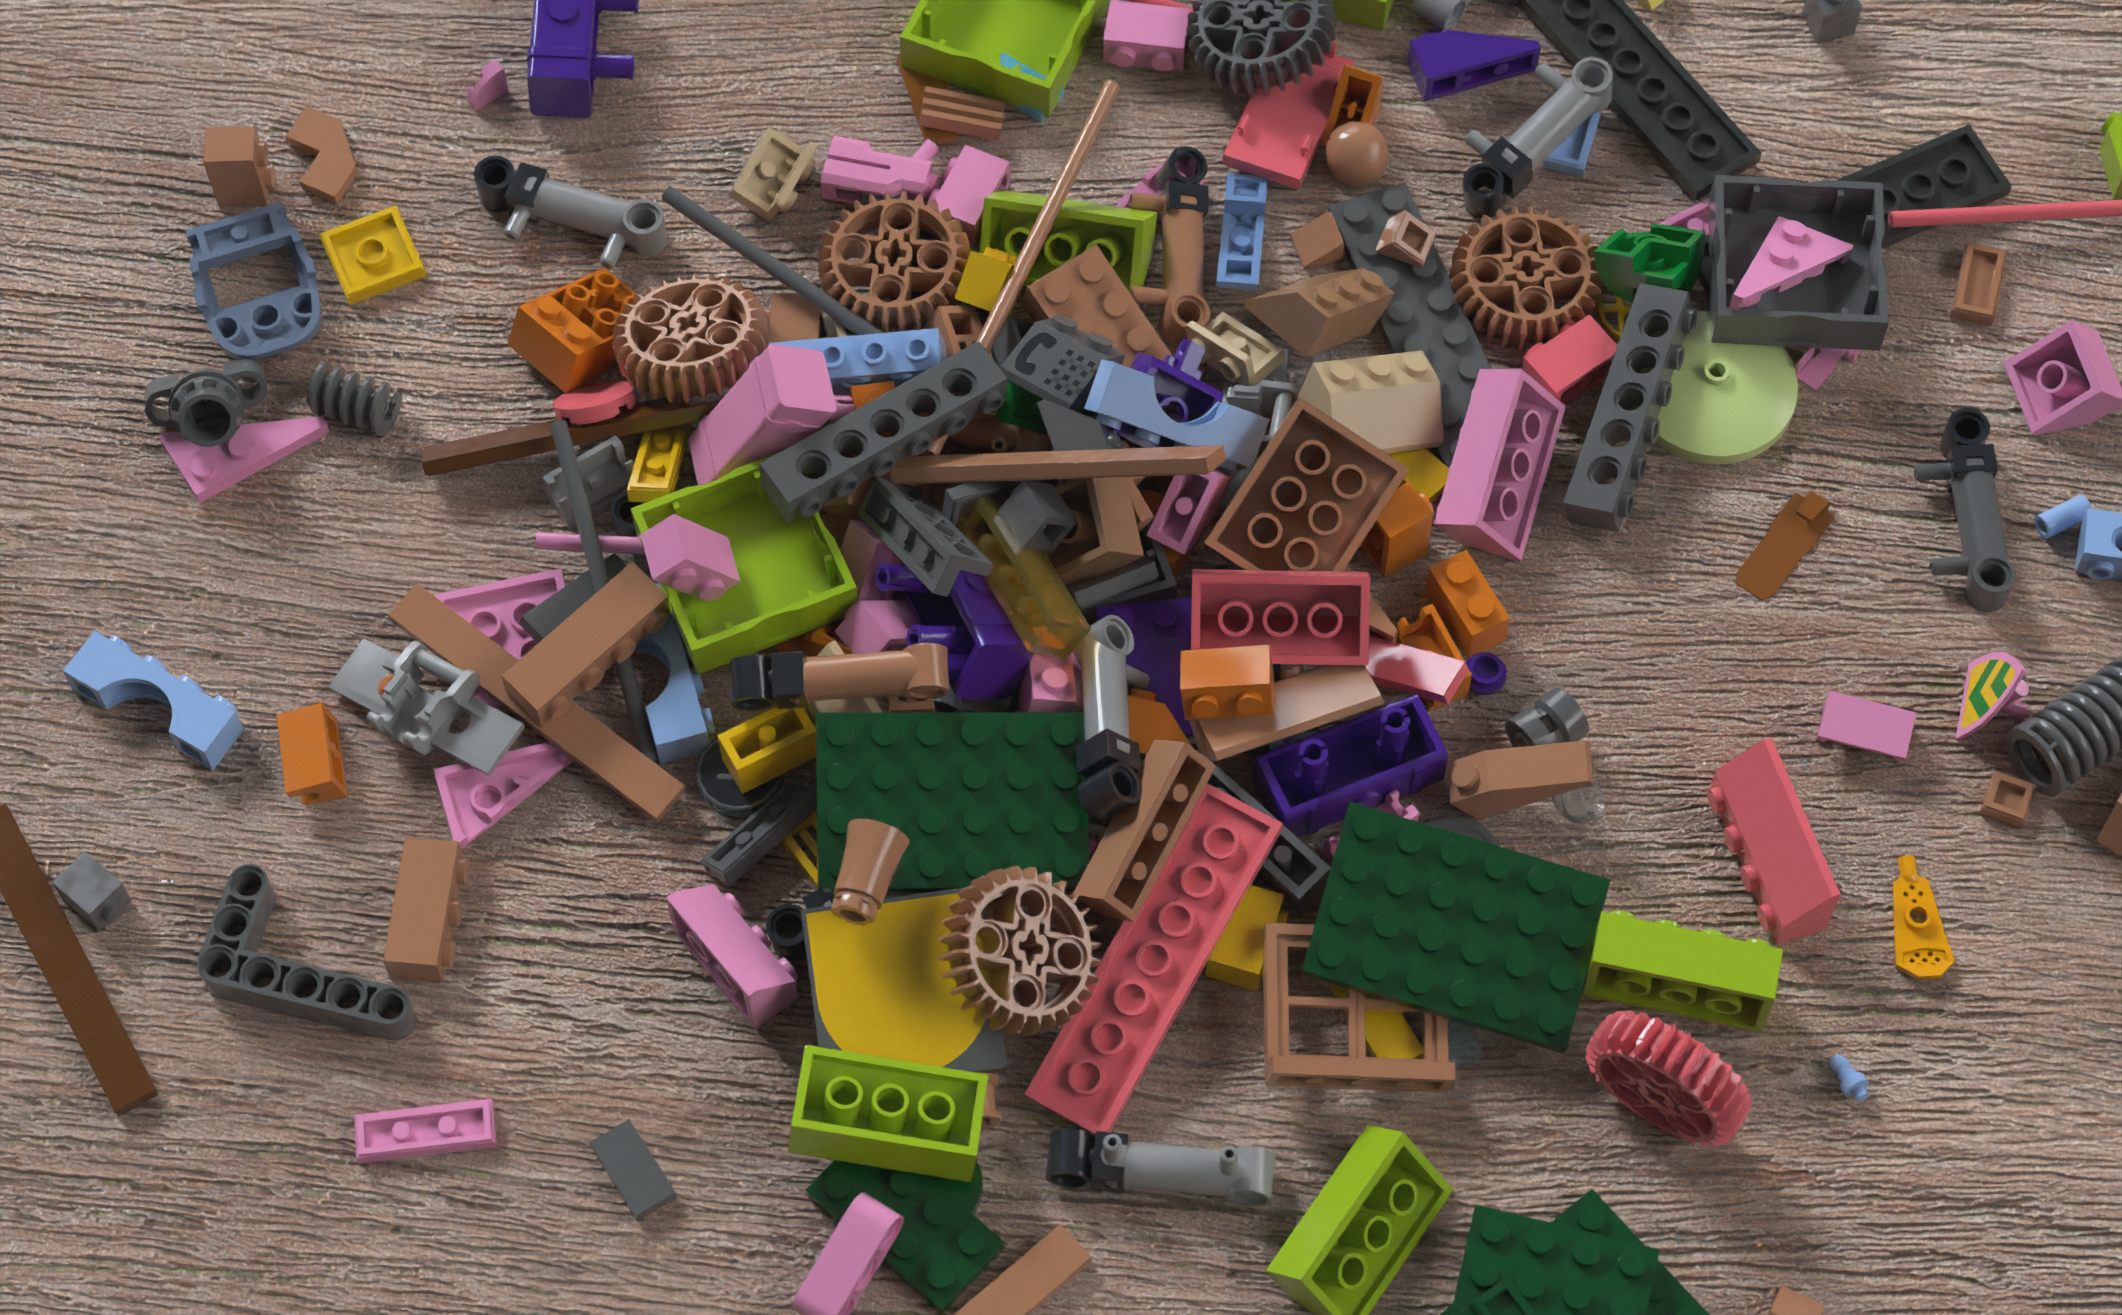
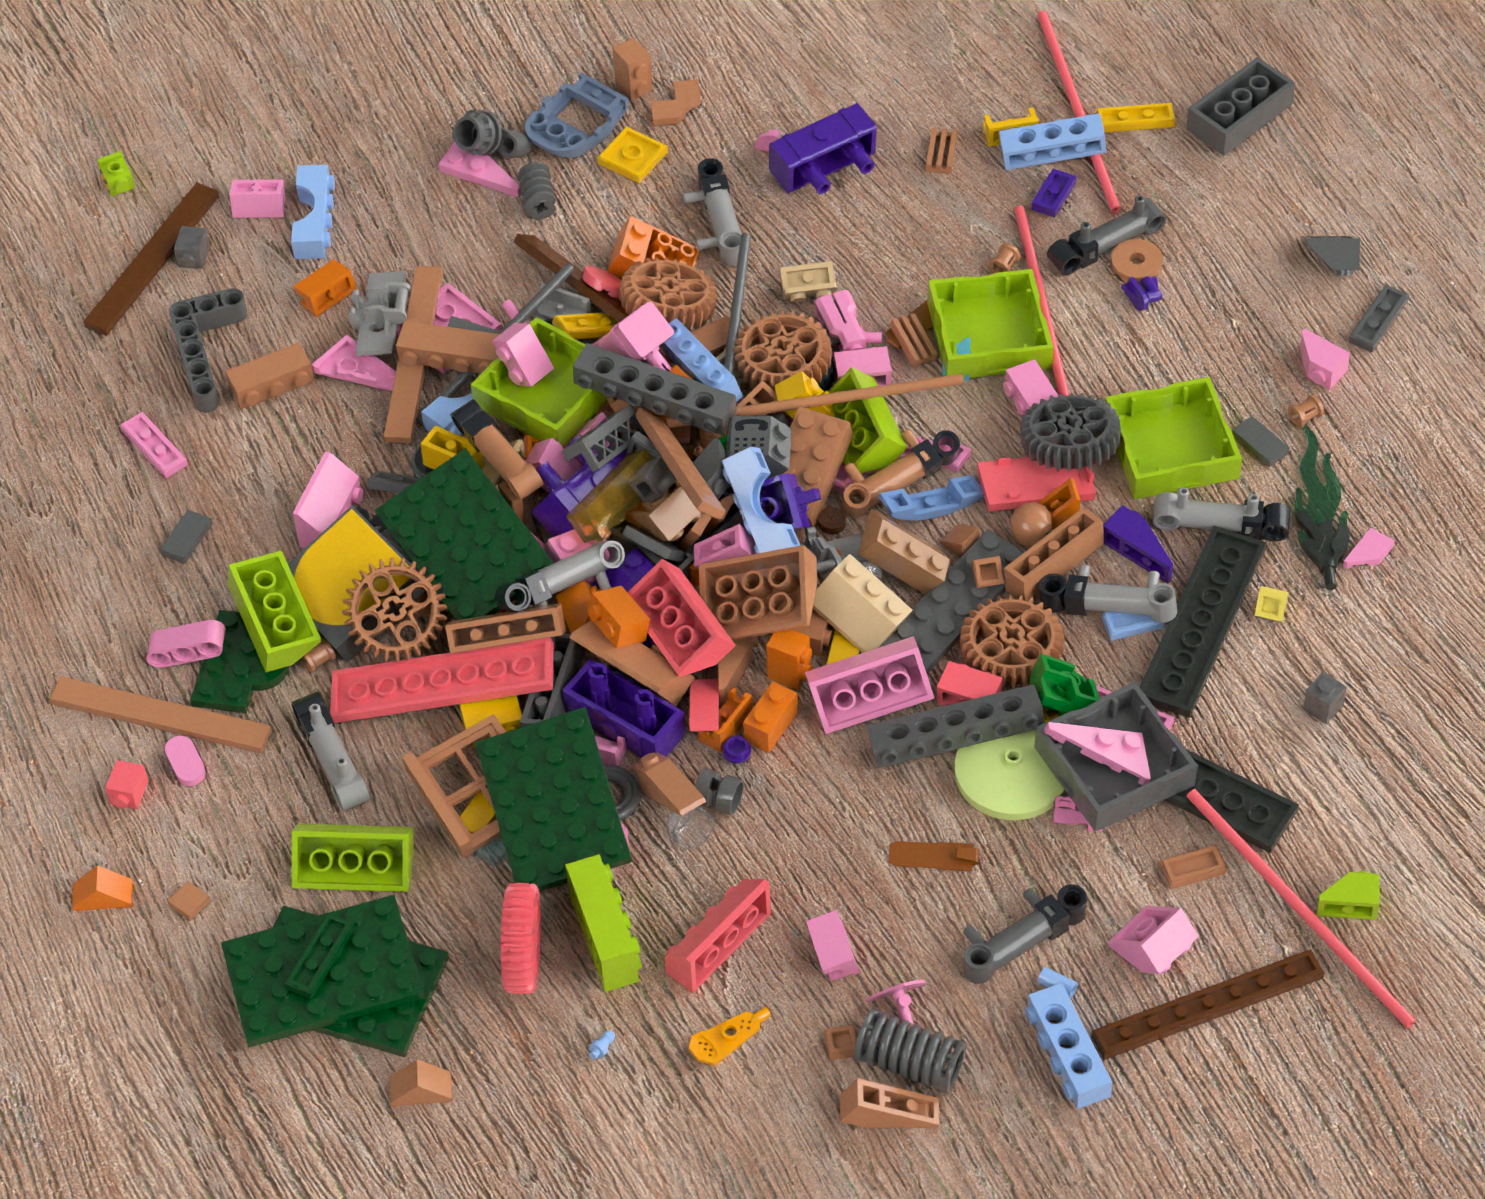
camera: 60 degrees right, 10 degrees down
(69, 756) = (257, 198): none -> bright pink hinge
(867, 869) = (385, 514): nougat plant -> none
(1236, 350) = (846, 528): tan bracket -> none
(1433, 155) = (1054, 554): none -> nougat brick

